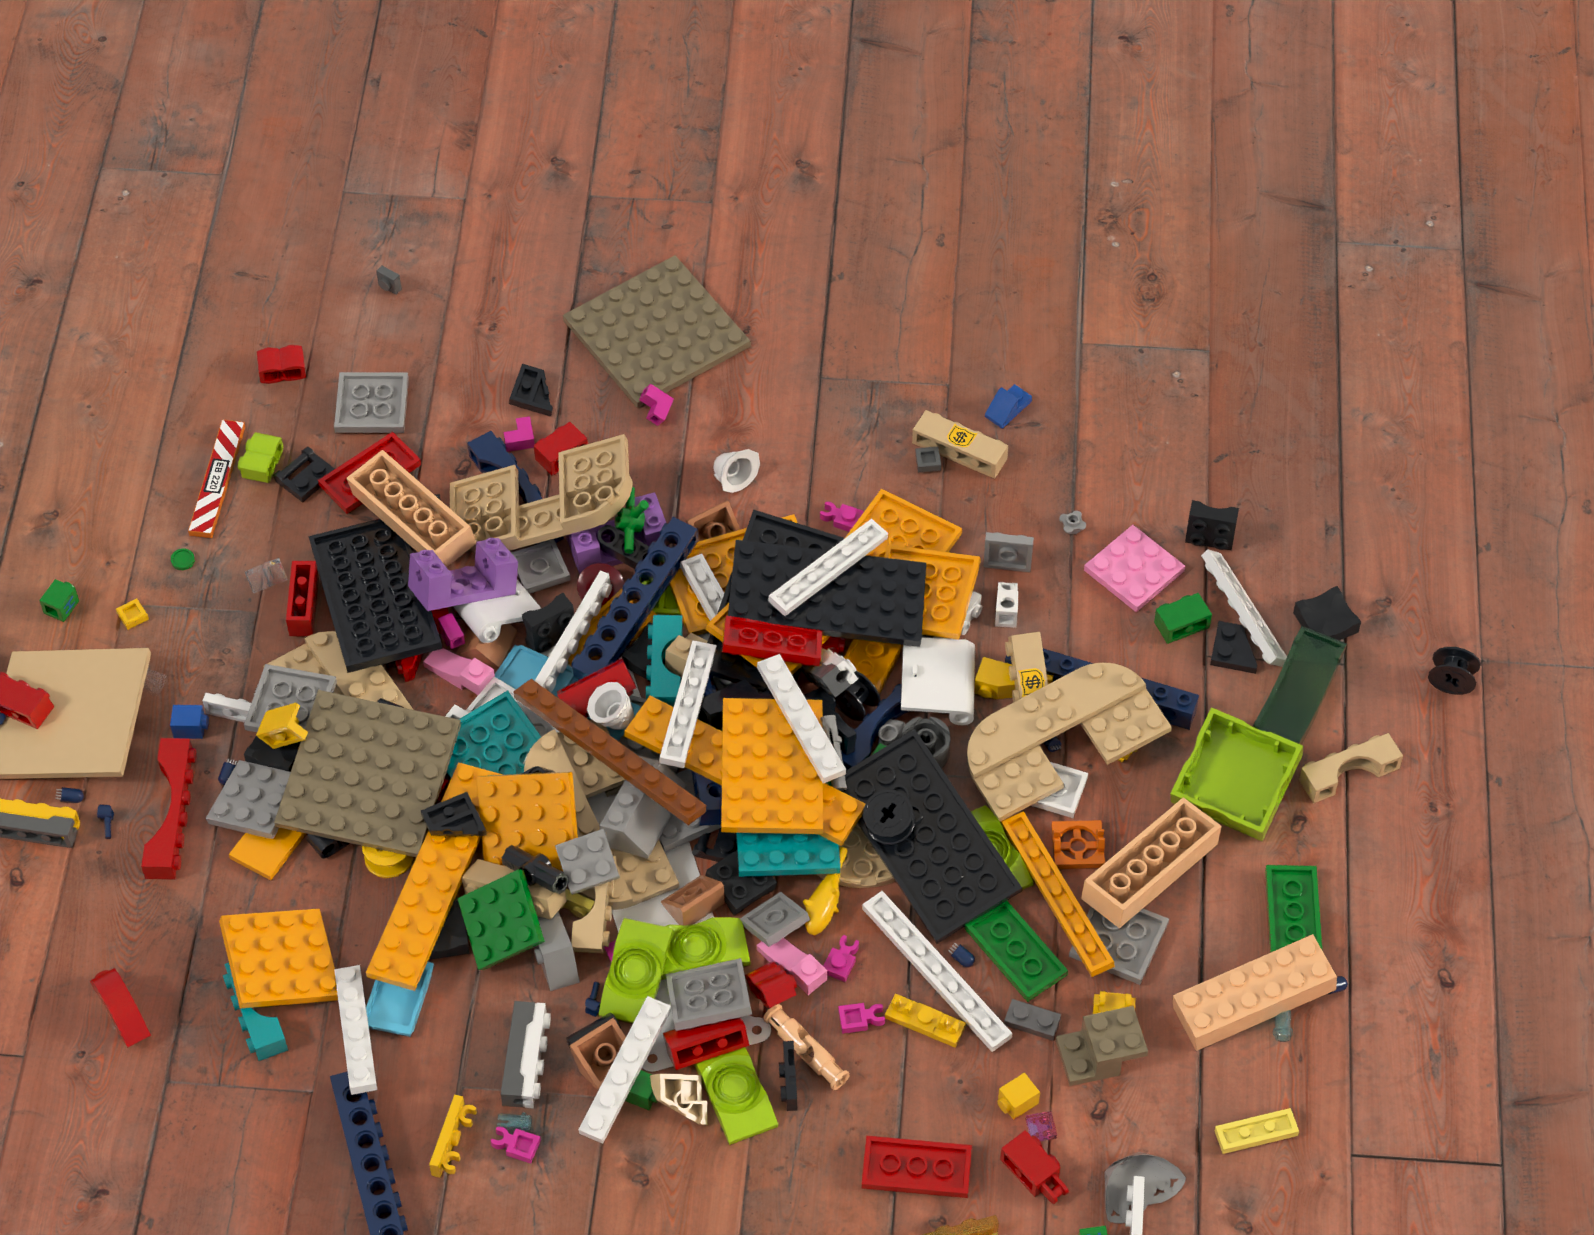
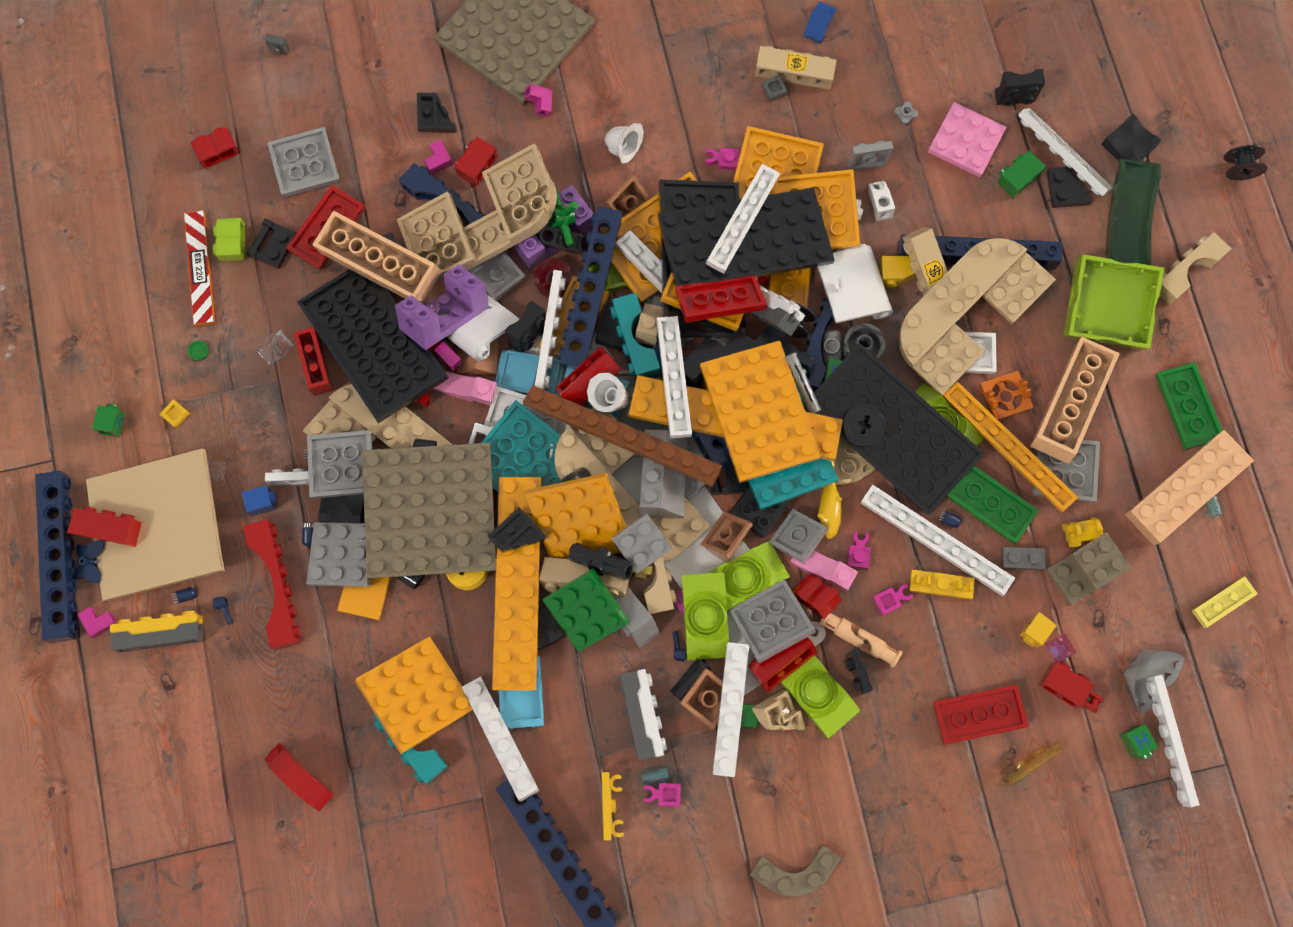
camera: 20 degrees left, 20 degrees up
(281, 726) = (341, 491): yellow panel -> none
(801, 718) = (771, 364): white plate -> none

